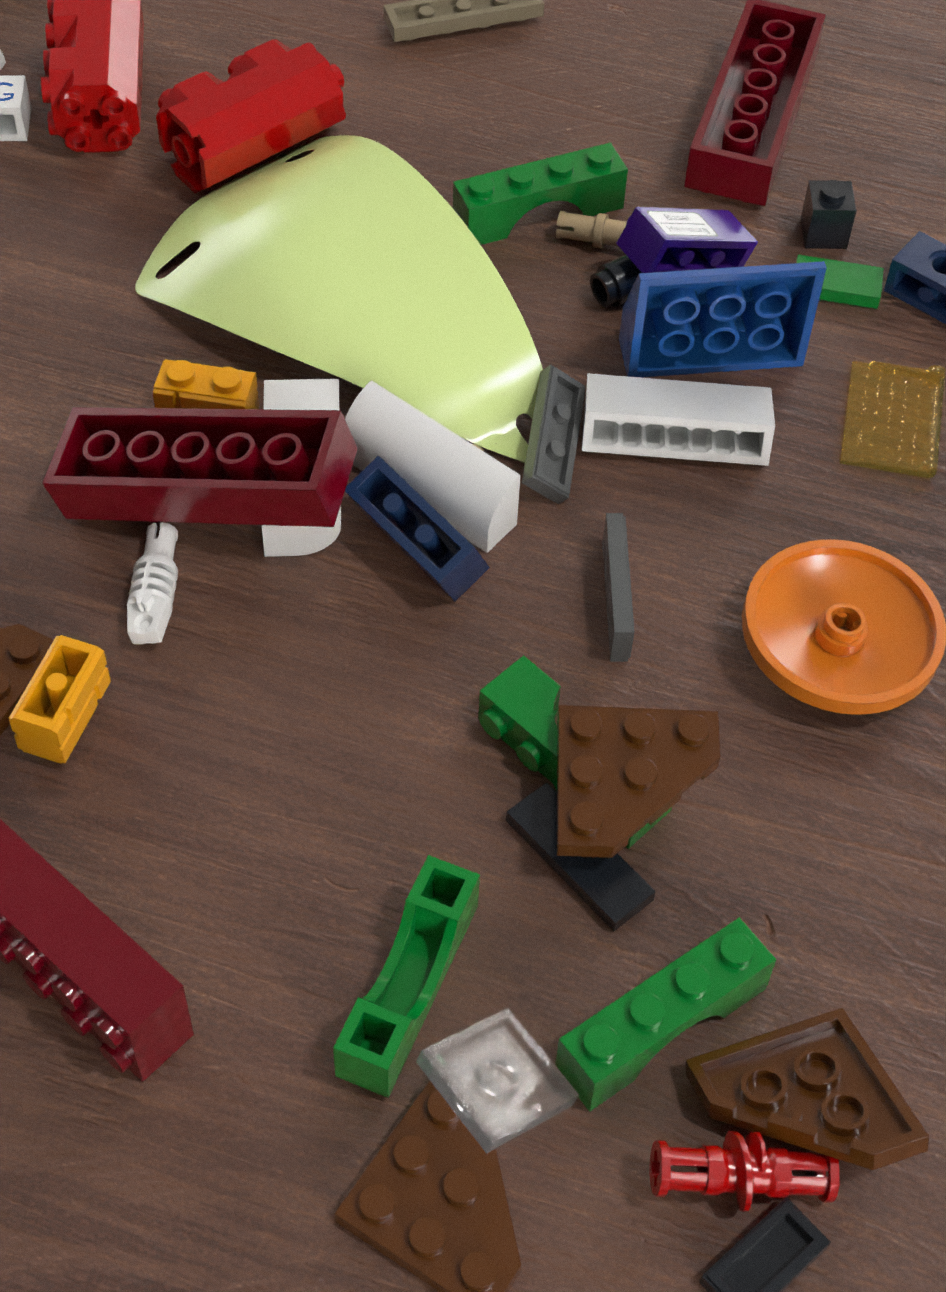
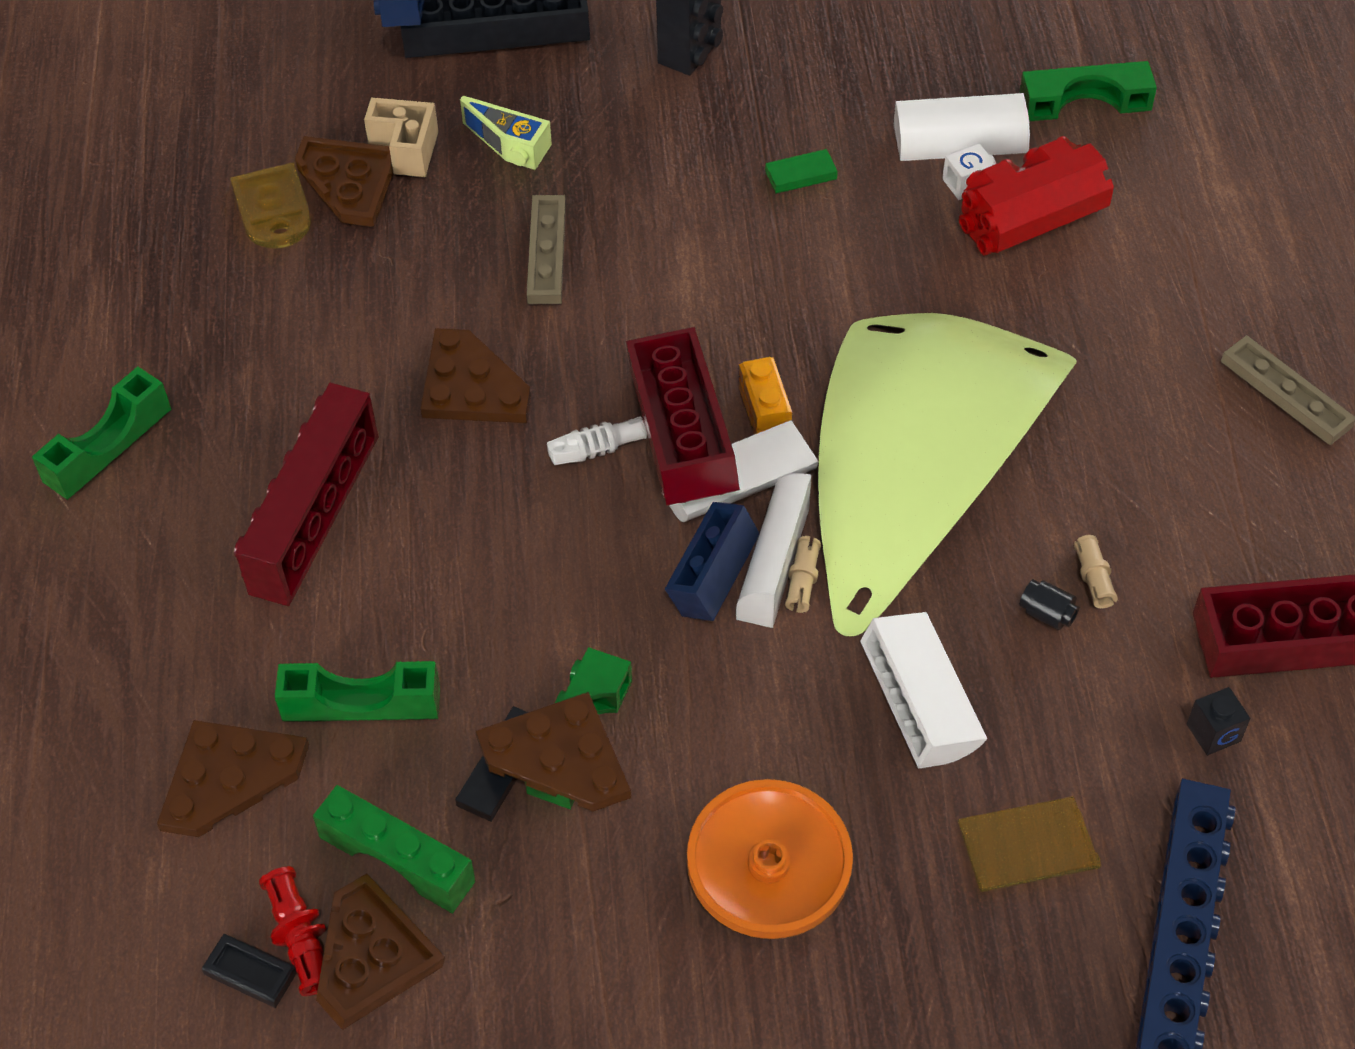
camera: 70 degrees right, 0 degrees up
(60, 699) = (474, 430): light orange brick -> none
(262, 108) = (1065, 310): red brick -> none
(497, 1079) = (309, 767): clear tile -> none
(498, 199) = (1135, 537): green arch -> none
(554, 434) = (853, 613): dark grey tile -> none
(618, 587) = (735, 703): dark grey tile -> none
(685, 239) = (1099, 625): dark purple brick -> none
(720, 319) = (1021, 678): blue slope -> none
(849, 282) = (1154, 756): green tile -> none

